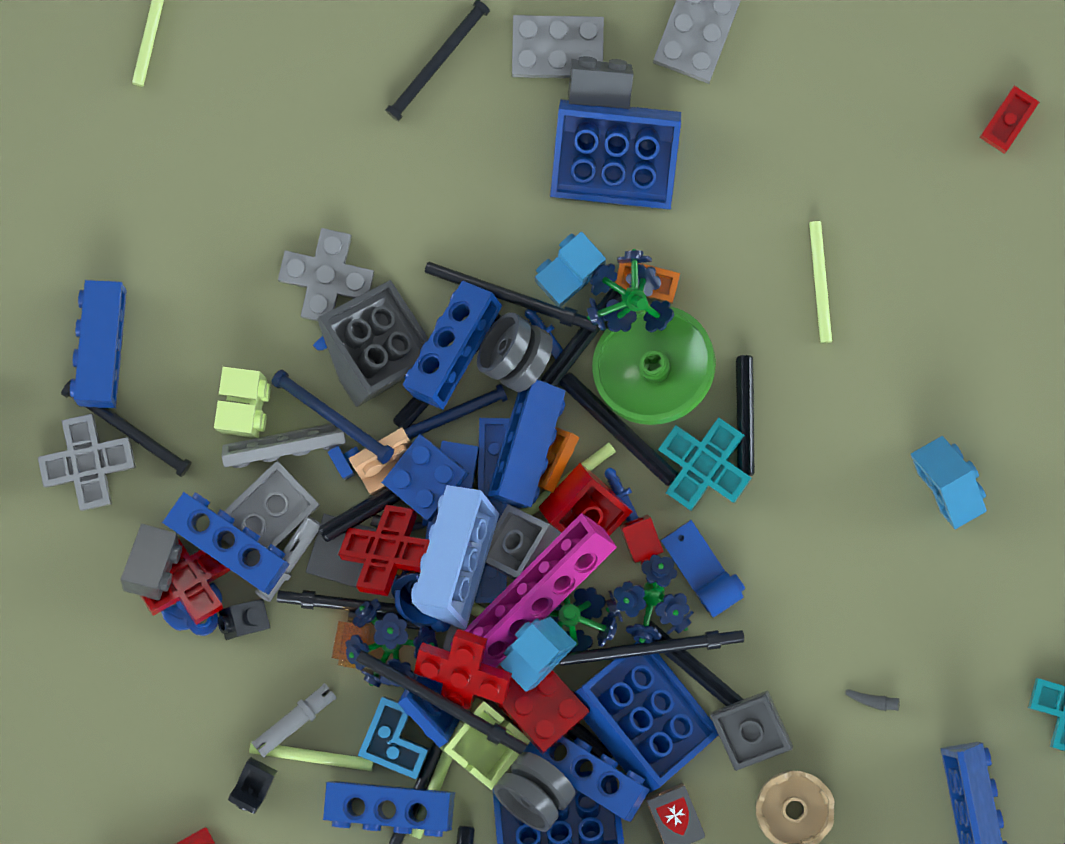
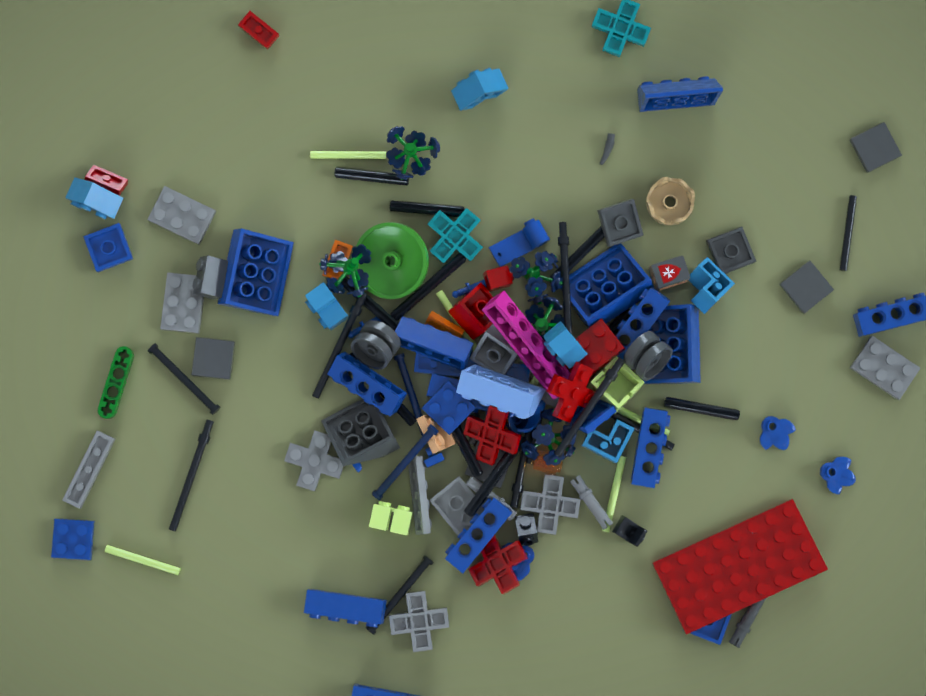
camera: 85 degrees left, 0 degrees up
(150, 562) = (486, 582): dark grey brick -> none
(285, 654) = (550, 504): none -> light grey plate
(313, 556) = (491, 481): none -> black axle
(345, 99) = (203, 439): none -> black bar
(474, 102) = (213, 358): none -> dark grey tile
(789, 322) = (367, 175): none -> black axle
(850, 387) = (415, 143): none -> dark blue plant

